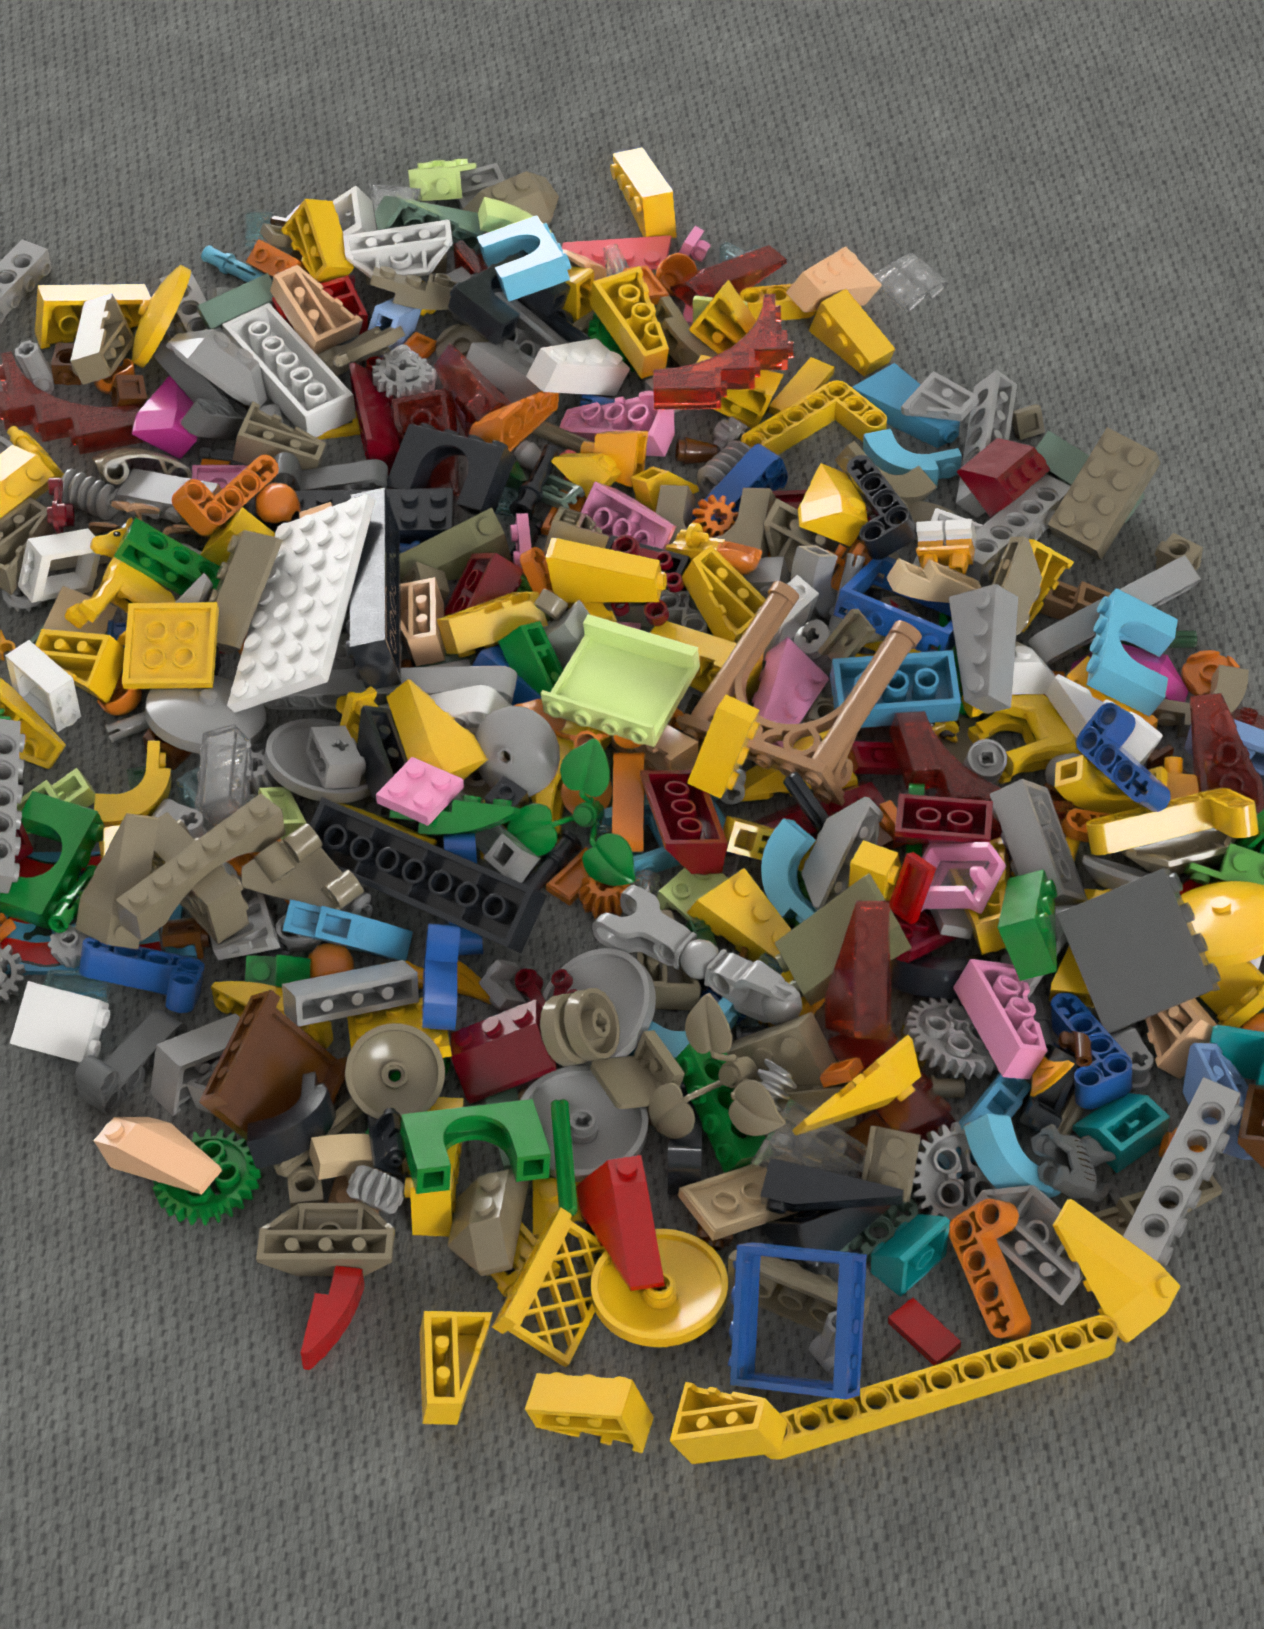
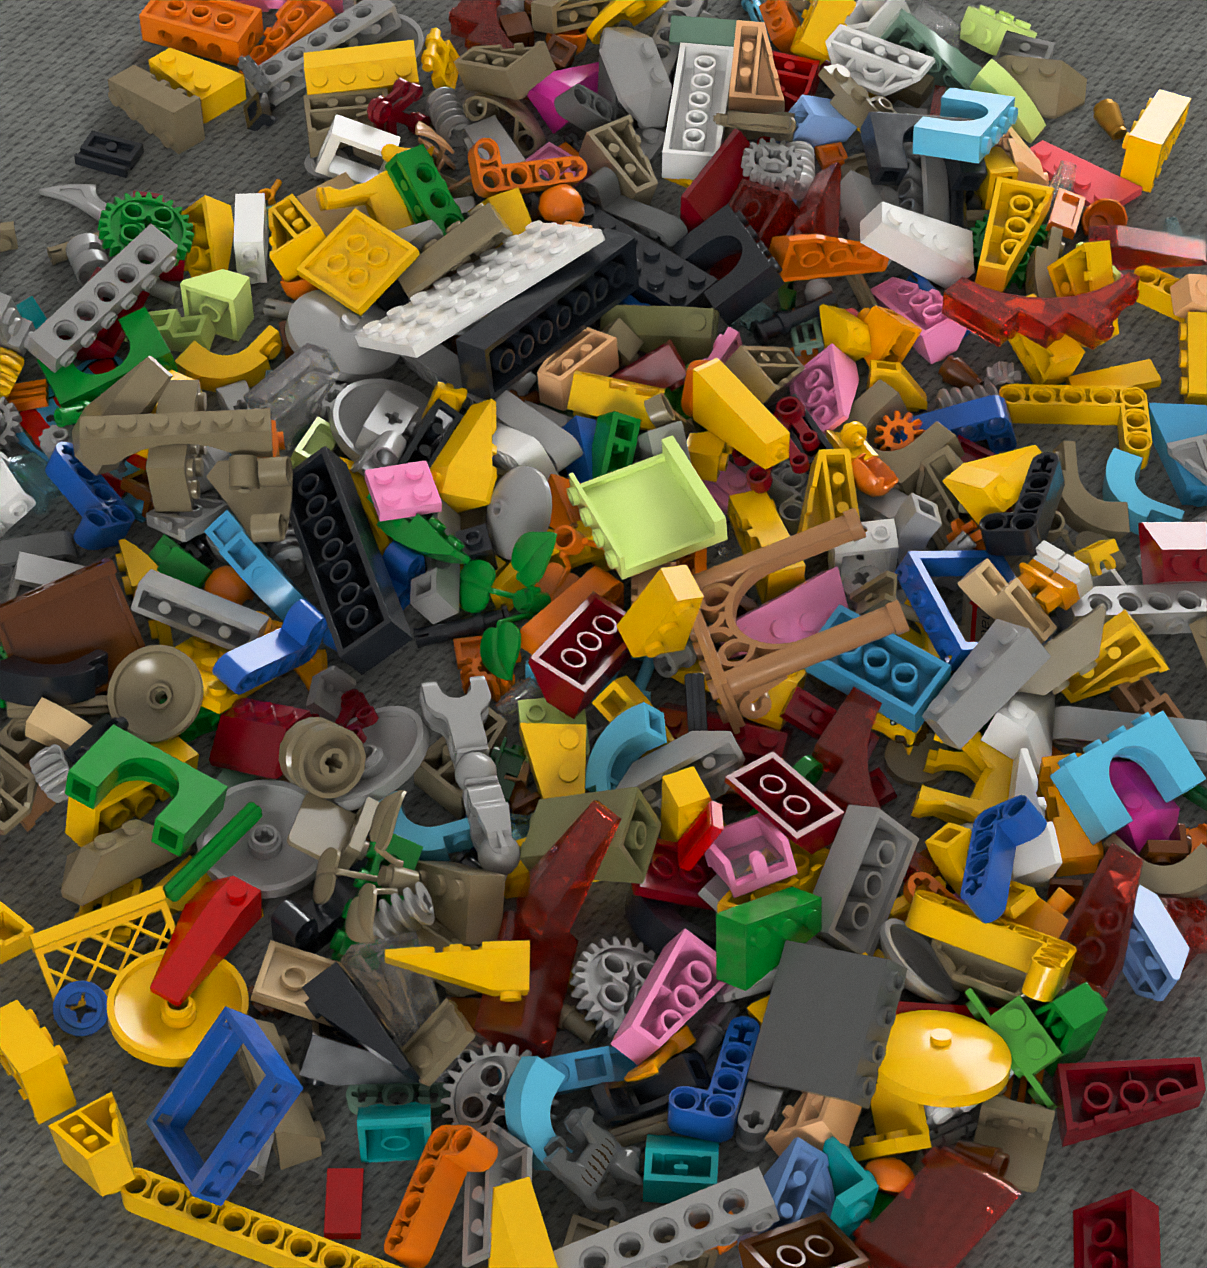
camera: 40 degrees right, 0 degrees up
(69, 389) = (517, 28): none -> reddish brown brick
(79, 746) = (223, 297): none -> yellowish green slope
(110, 428) = (505, 71): none -> dark tan wedge
(361, 782) = (382, 453): none -> light grey piece
(585, 1331) = (70, 996): none -> blue gear
(594, 198) = (1110, 118): none -> pearl gold cone
(694, 246) = (1150, 206): bright pink tile -> none
(841, 1072) = (475, 938): orange tile -> none
(948, 509) = (1096, 553): none -> yellow tile
(986, 760) = (894, 784): light grey wheel -> none
(1079, 1044) = (705, 1069): reddish brown arm -> none
(1196, 681) = (1168, 851): none -> reddish brown bracket

